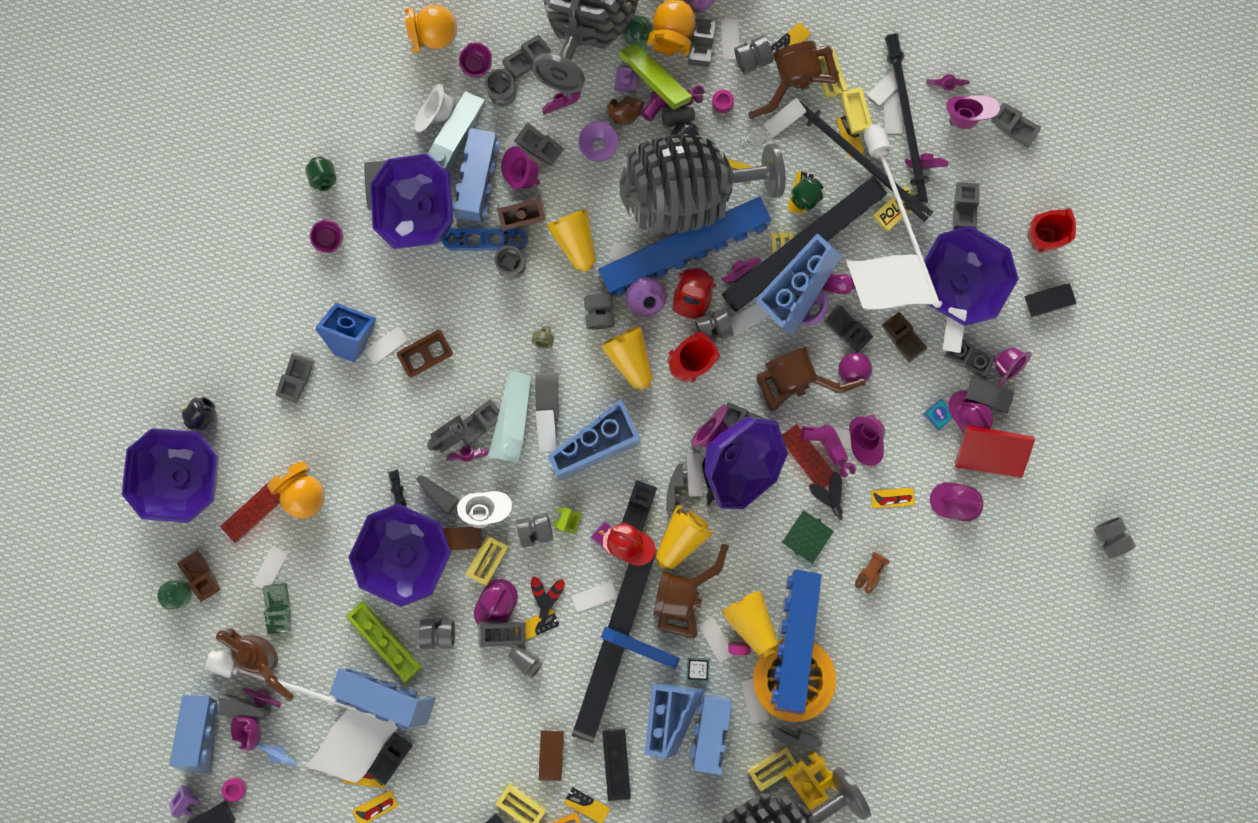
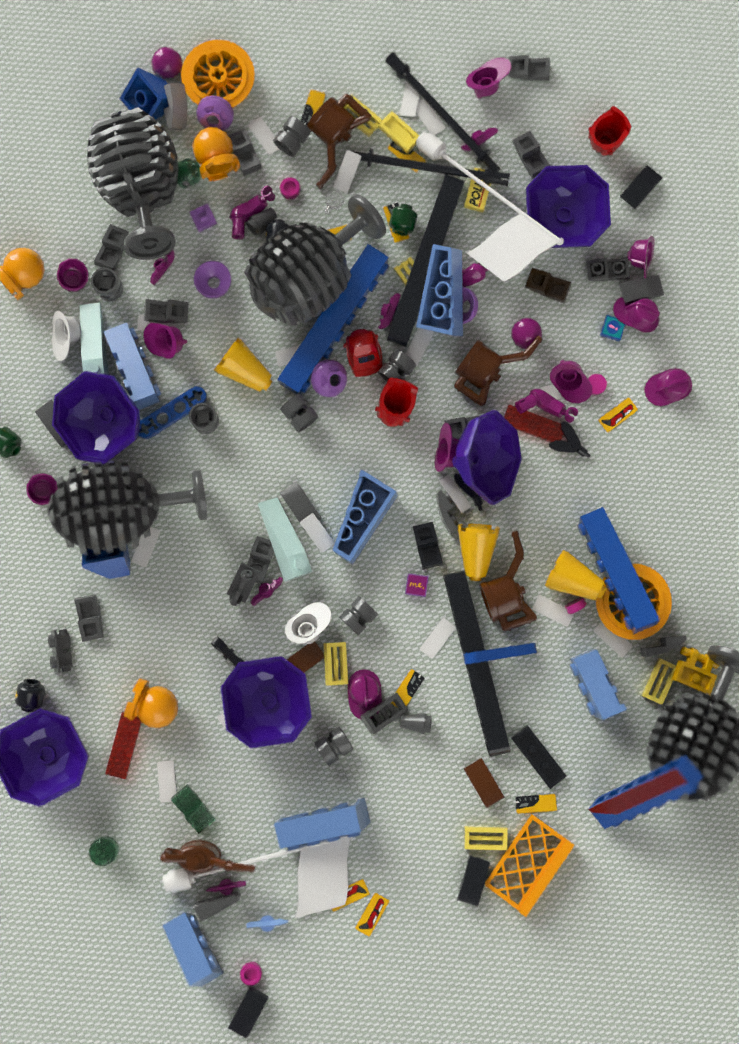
camera: 45 degrees left, 0 degrees up
(181, 800) = (214, 1010): medium lavender tile -> none
(199, 575) = (113, 823): reddish brown slope -> none
(246, 731) = (232, 921): magenta hair -> none
(253, 383) = (58, 643): none -> dark grey hinge
(375, 291) = (113, 506): none -> dark grey plant
(384, 641) = (295, 780): lime tile -> none
(389, 758) = (359, 868): black slope -> none
(422, 347) = (175, 529): reddish brown piece -> none
(442, 498) = (270, 637): dark grey slope -> none
(521, 212) = (187, 372): reddish brown brick -> none
(543, 338) = (268, 461): olive tile -> none
(546, 601) = (402, 665): piece -> none
(568, 521) = (380, 591): lime tile -> none
(625, 111) = (218, 242): reddish brown hair -> none
(629, 544) = (439, 579): red piece -> none
(630, 357) = (347, 433): yellow cone -> none
(655, 76) = (225, 200): lime tile -> none
(669, 718) = (557, 693): medium blue wedge -> none
(698, 669) = (554, 642): tile -> none
(807, 536) = (572, 486): clear green piece -> none
(848, 329) = (501, 306): black slope -> none
(871, 572) = (639, 482): dark orange piece -> none
(892, 457) = (598, 384): none -> dark pink tile
(947, 82) = (456, 66): magenta piece -> none
(954, 331) = (585, 255): white sticker -> none
(994, 451) = (673, 329): red tile -> none

